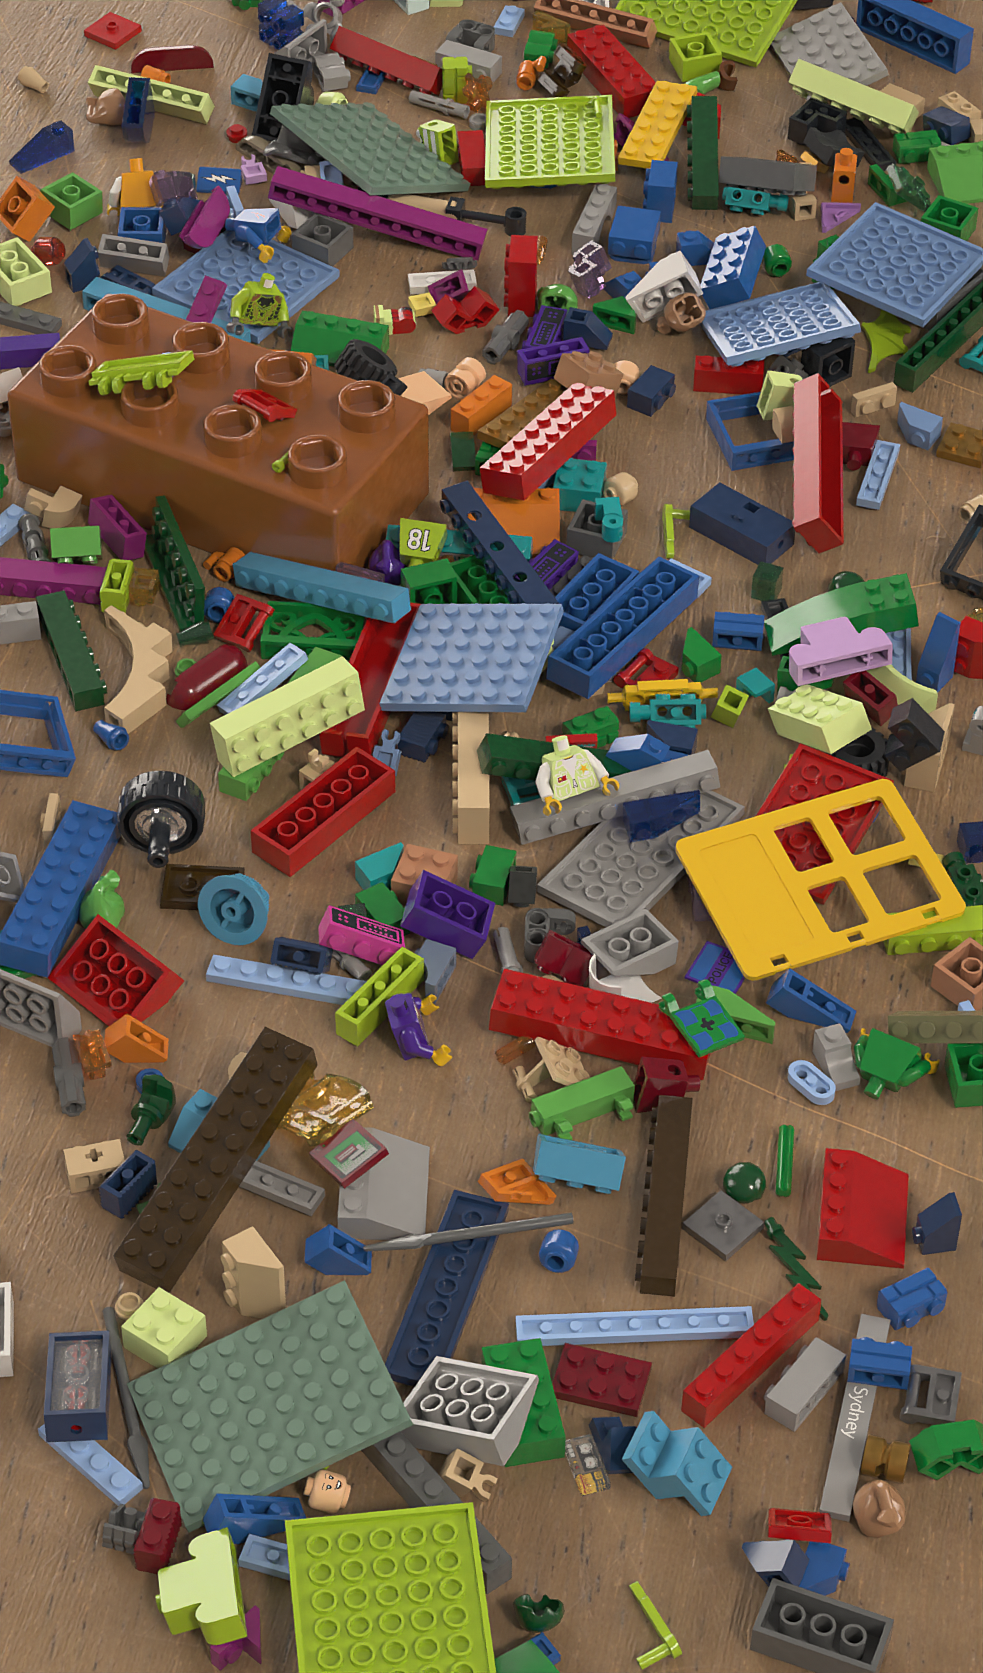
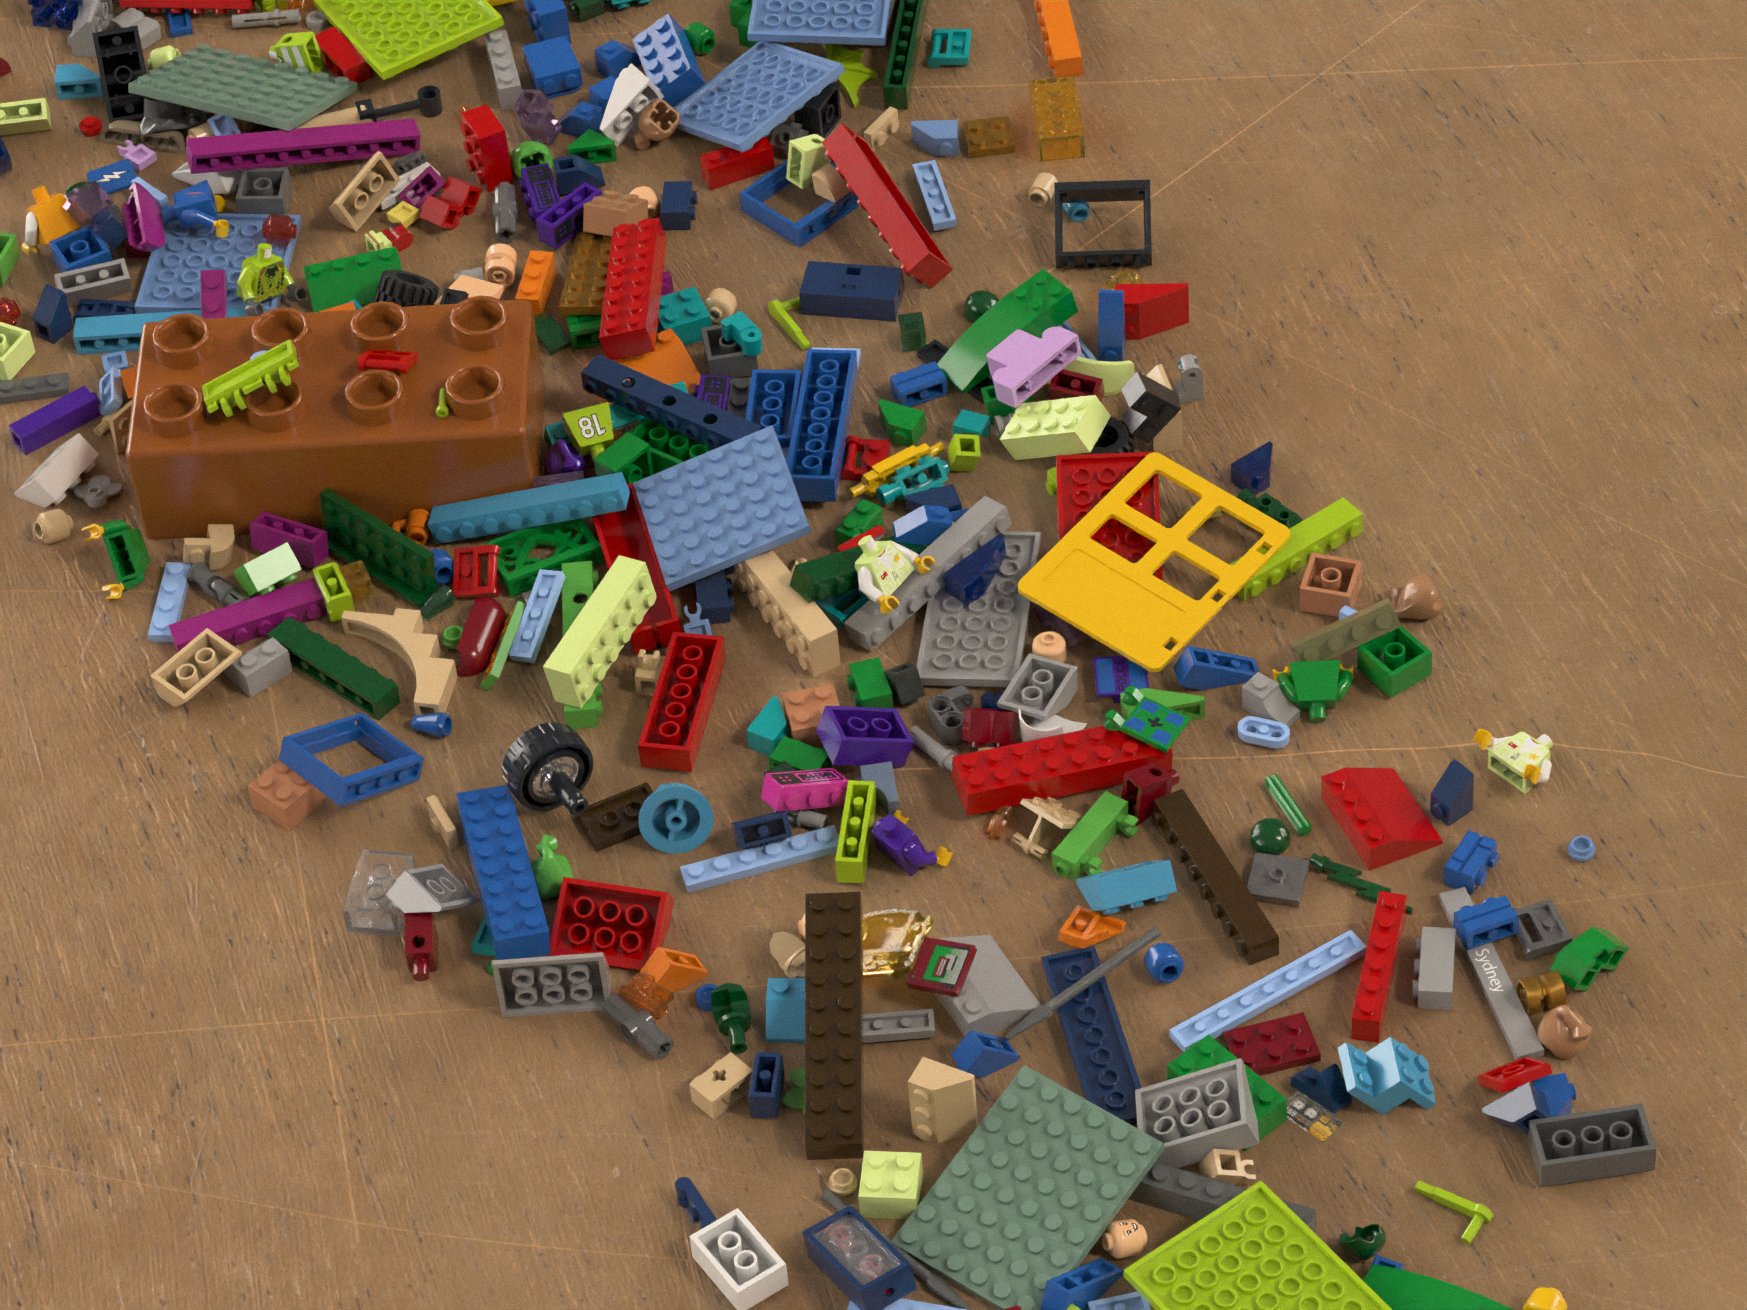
camera: 25 degrees left, 0 degrees up
(307, 273) = (278, 229): none -> clear red head
(398, 270) = (364, 192): none -> tan slope
(673, 914) = (1050, 645): none -> light nougat head
(858, 443) = (903, 172): dark red torso -> none

